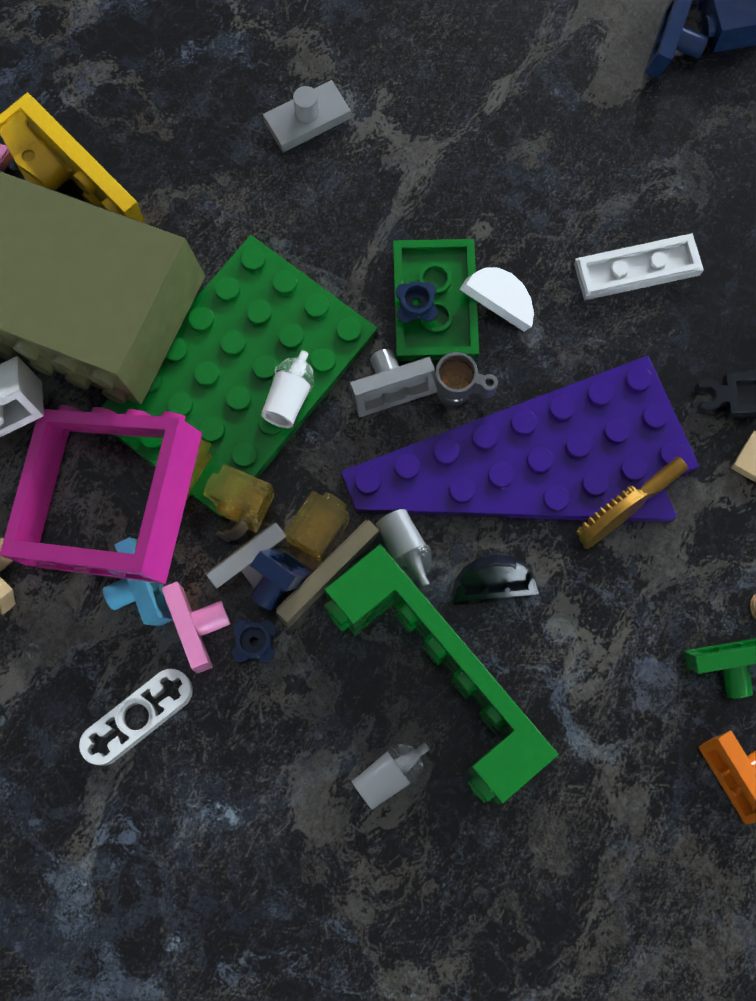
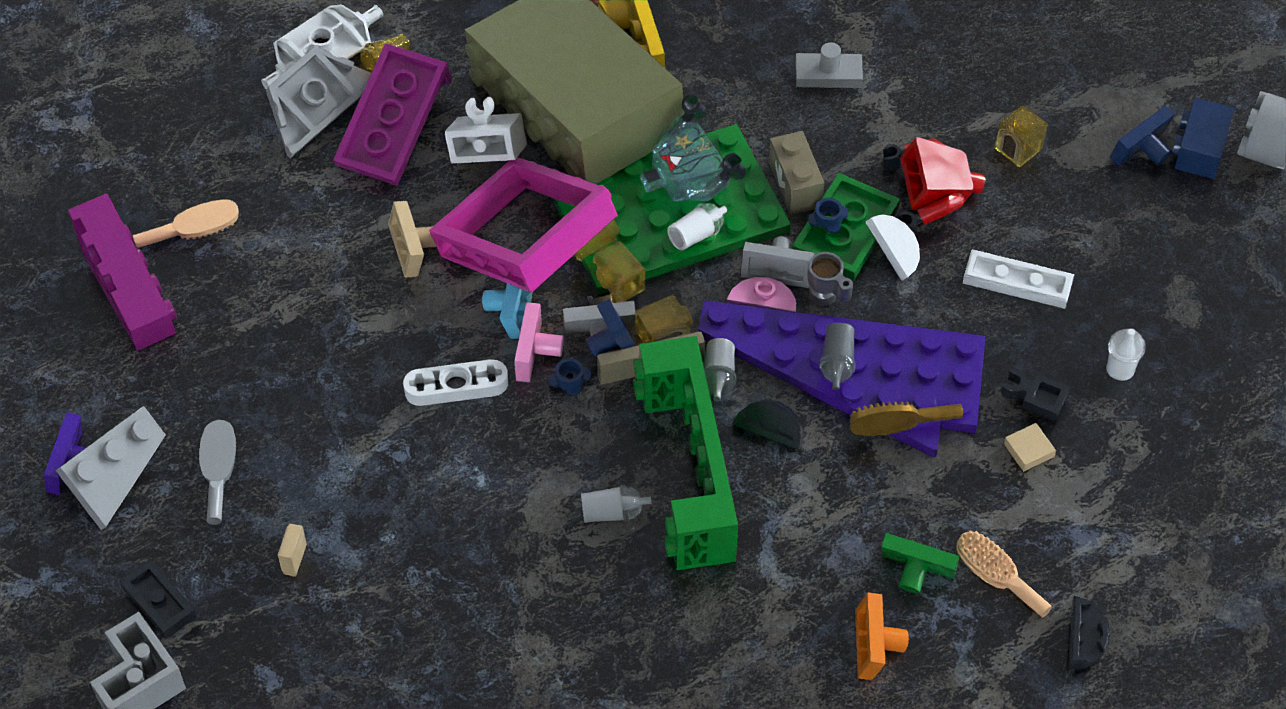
camera: 30 degrees right, 20 degrees down
(236, 318) = (688, 161): none -> clear light blue torso
(349, 263) = (795, 172): none -> dark tan brick
(398, 428) = (763, 293): none -> bright pink plate
(497, 194) = (935, 178): none -> red torso
(524, 468) = (838, 354): none -> piece
(552, 96) = (1021, 135): none -> clear yellow brick

